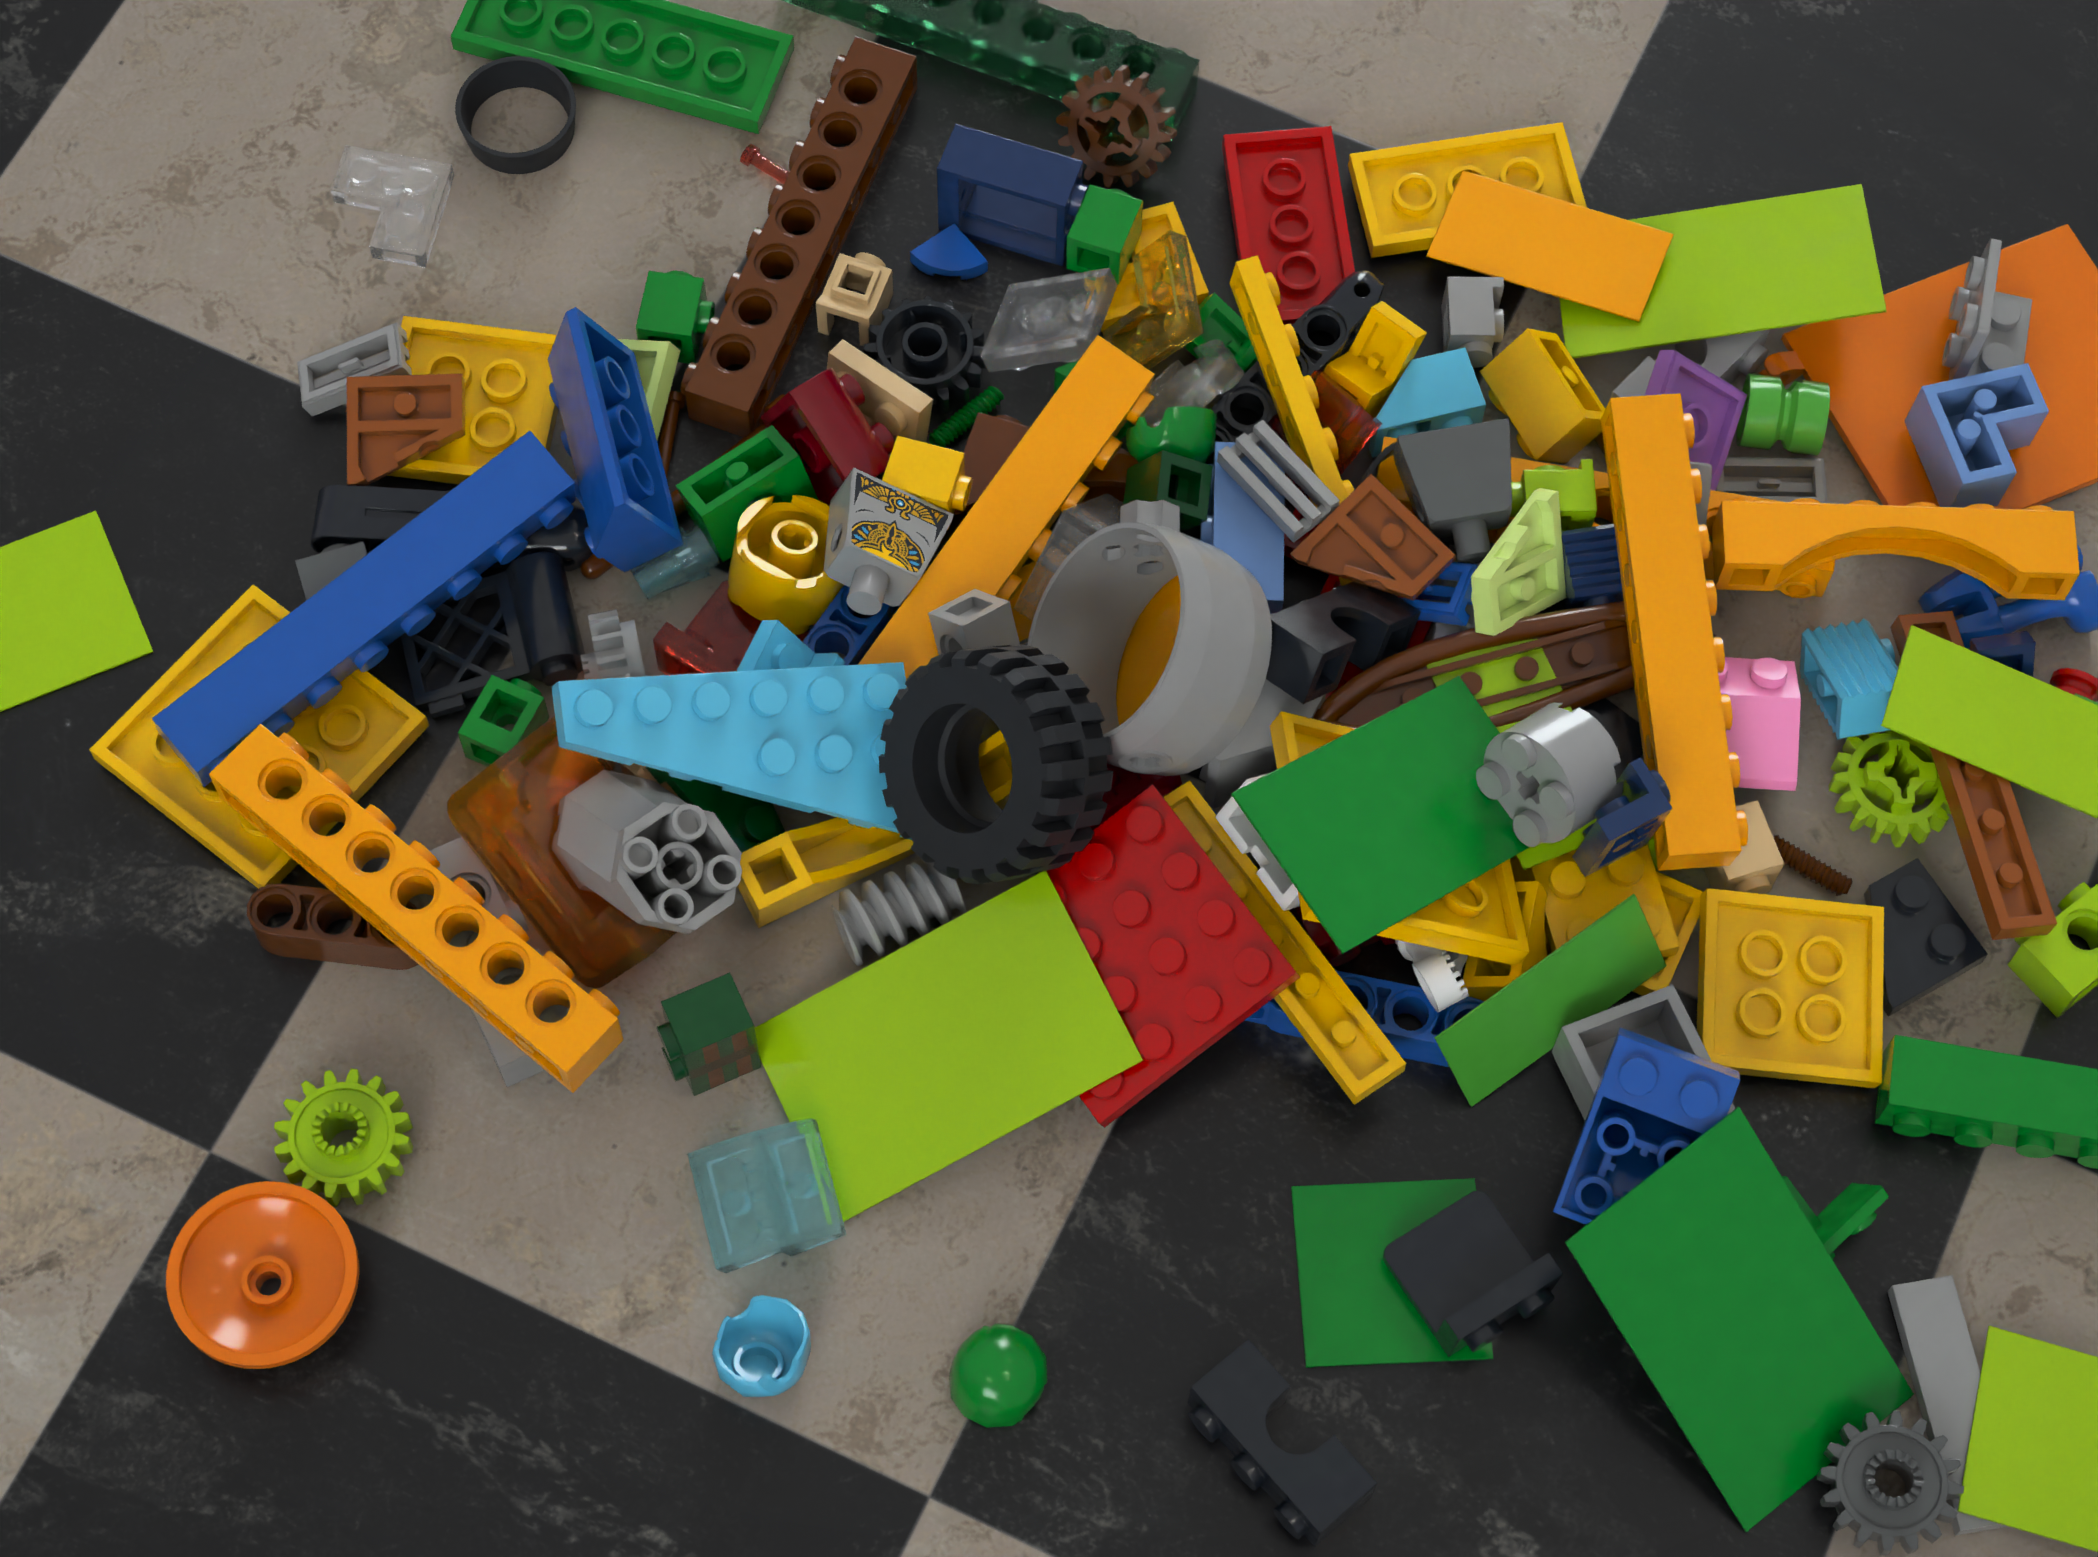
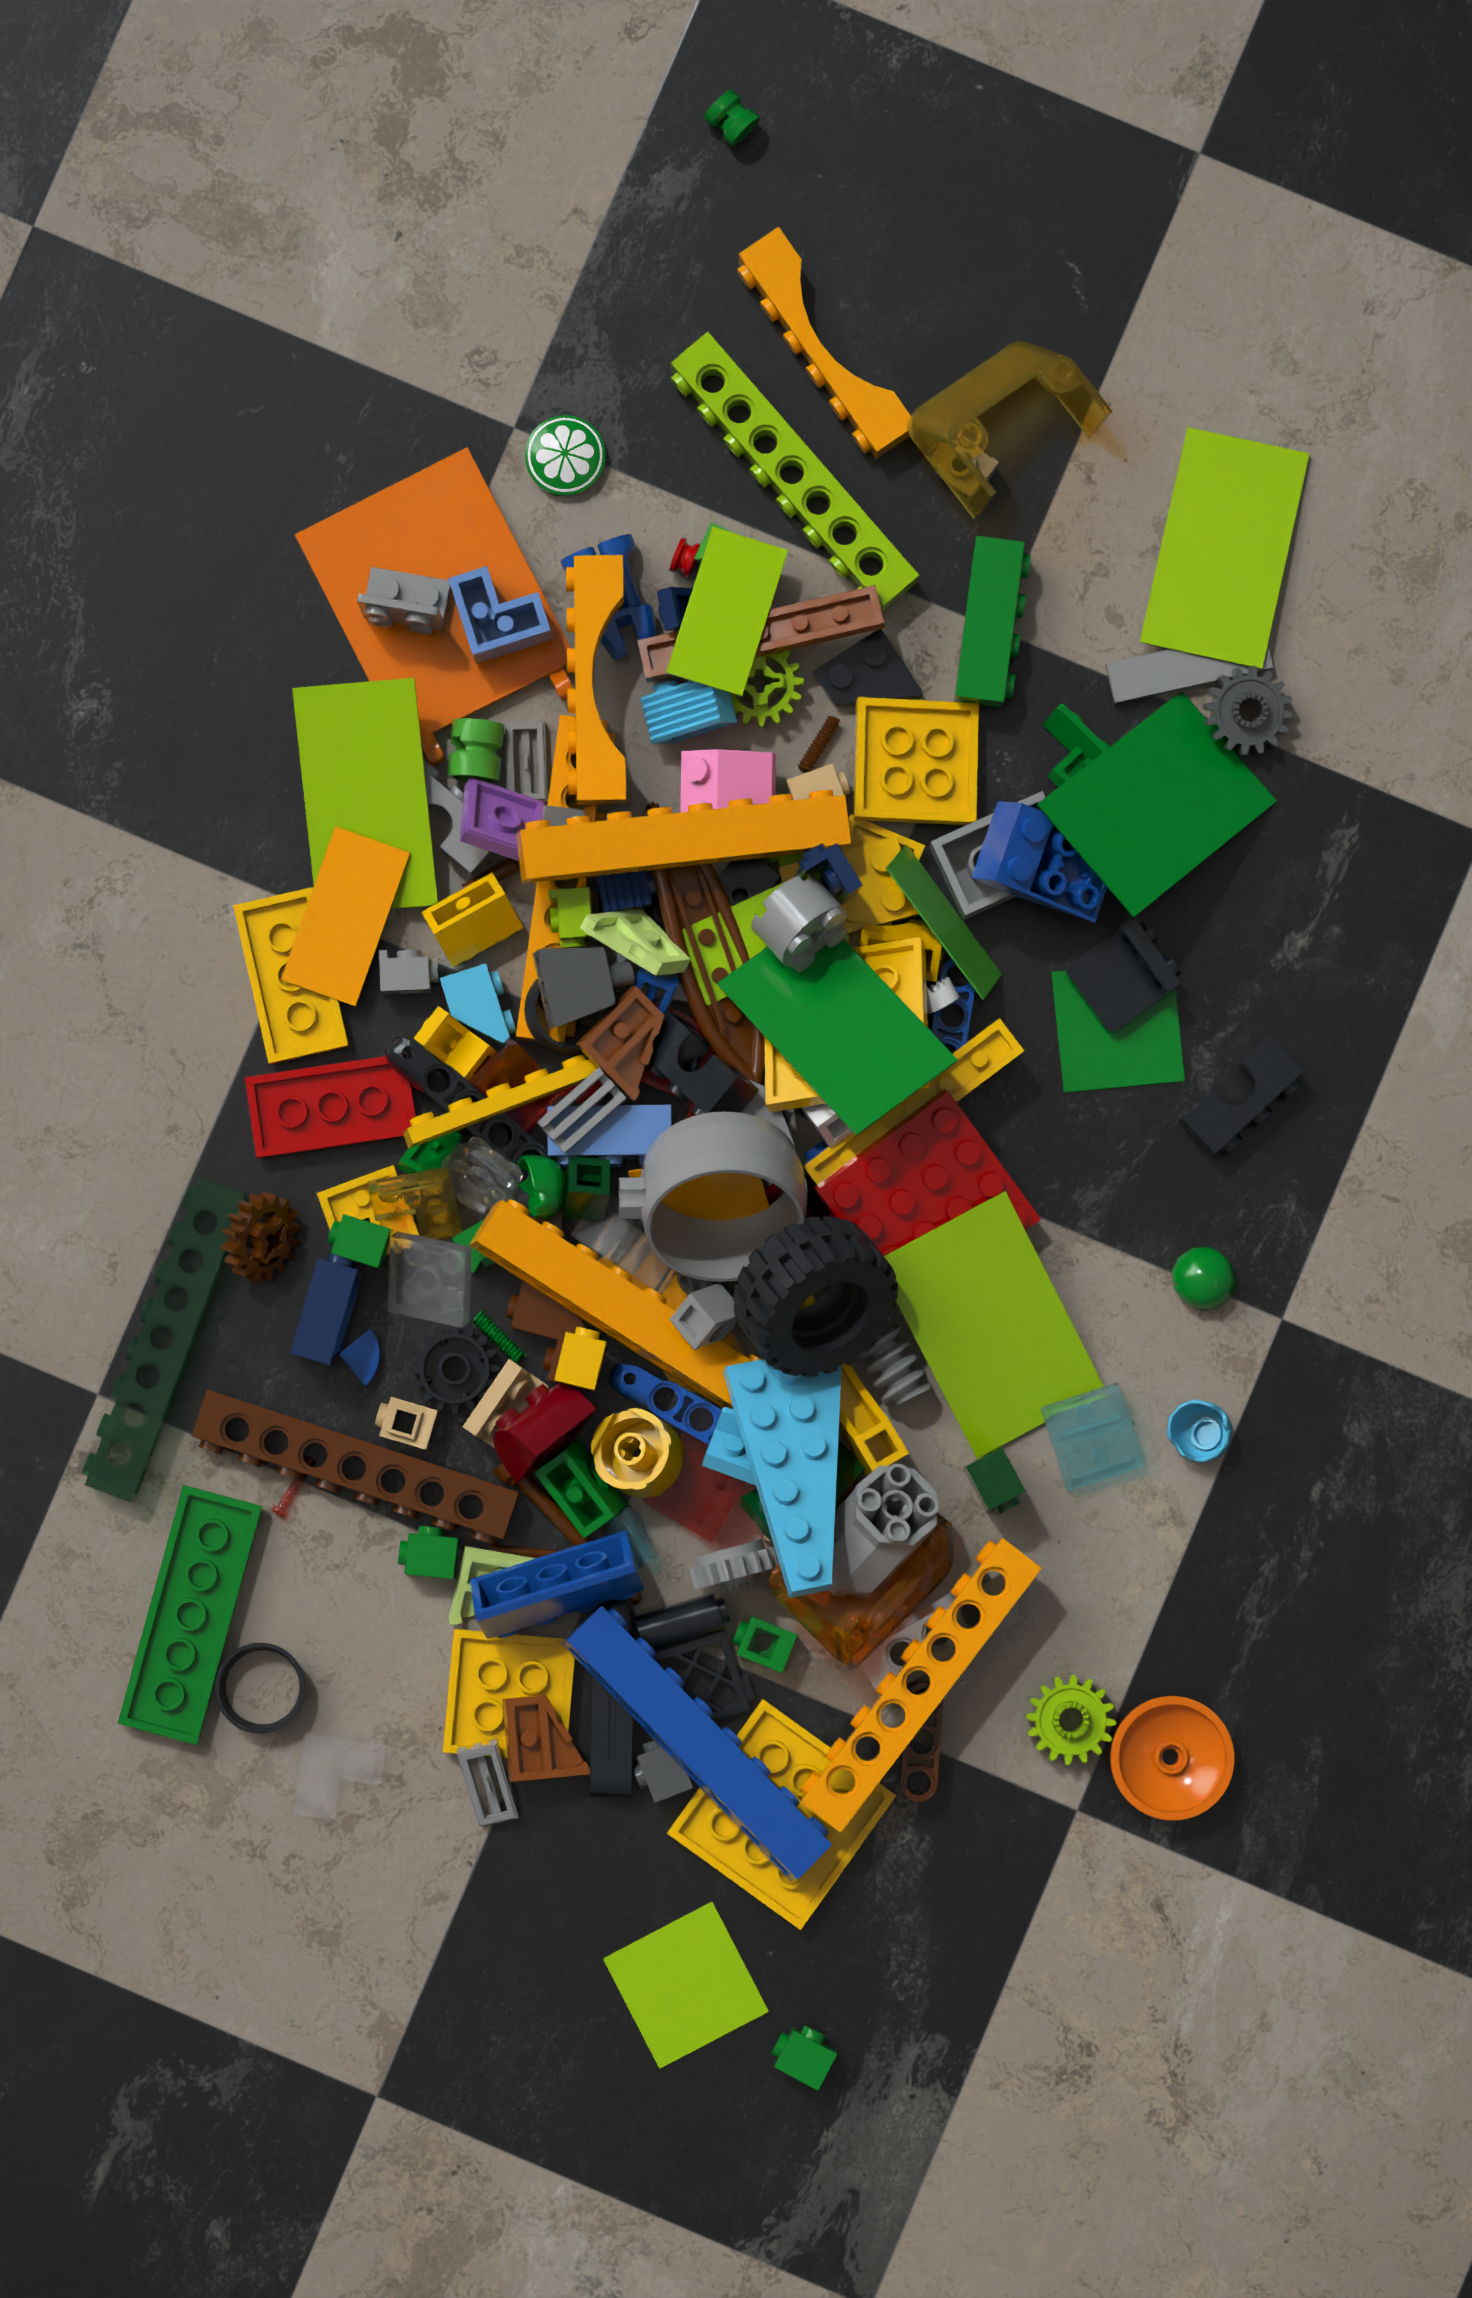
camera: 90 degrees left, 20 degrees up
(880, 541) = (636, 1387): light grey torso -> none

